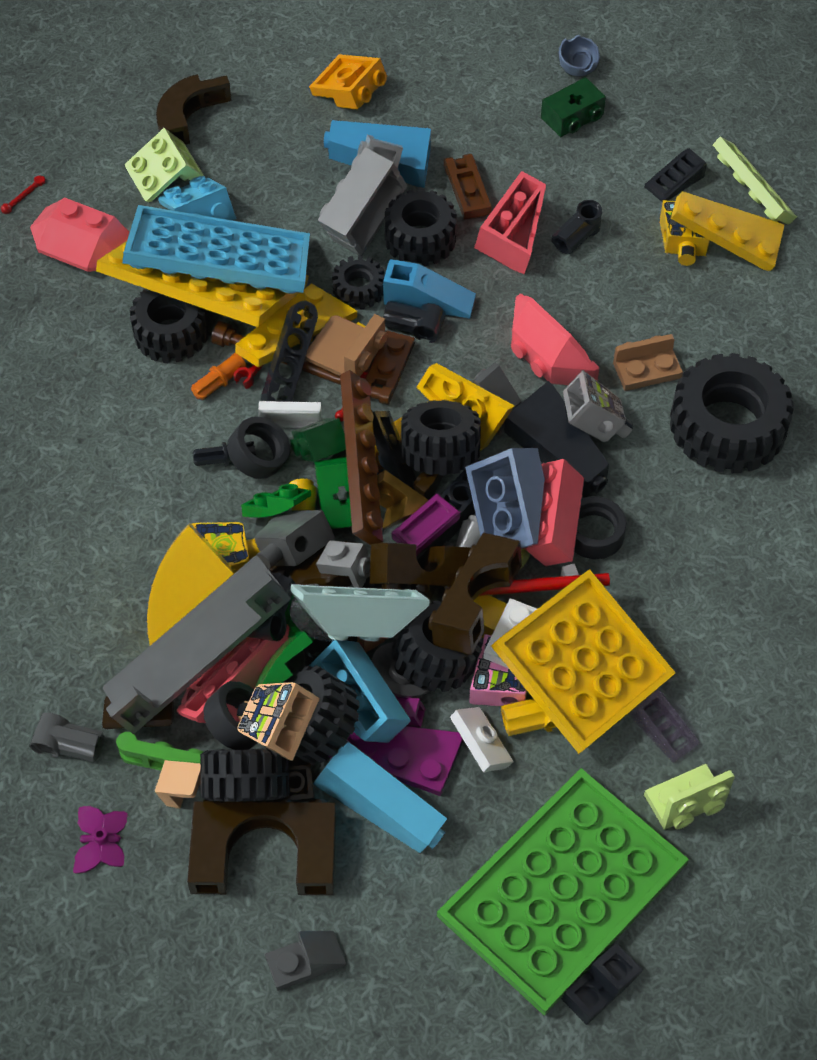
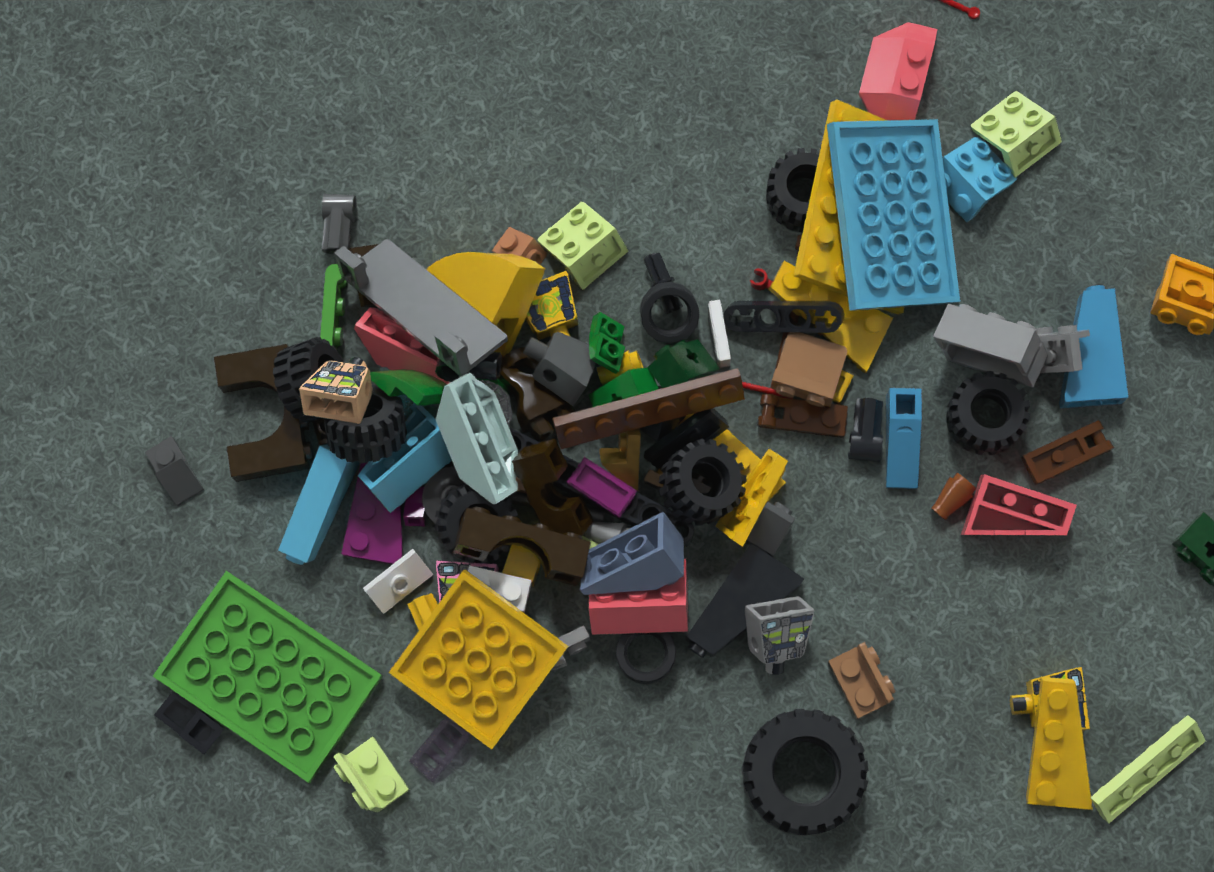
camera: 85 degrees right, 20 degrees up
(102, 839) = (257, 277): magenta piece -> none
(144, 571) = (520, 244): none -> nougat bracket
(159, 513) = (584, 244): none -> yellowish green bracket
(177, 782) = (304, 325): light nougat panel -> none
(186, 98) = (1109, 123): dark brown arch -> none
(217, 377) = (753, 253): orange axle -> none
(219, 719) = (357, 337): black tyre -> none
(345, 560) = (539, 419): light grey bracket -> none
(358, 269) = (904, 347): black tyre -> none
(488, 267) = (953, 496): none -> dark orange cone
(542, 584) = (560, 622): red bar -> none
(547, 344) = (857, 570): coral wedge -> none
(579, 227) = (1027, 579): black piece -> none
(689, 164) = (1139, 697): black slope -> none

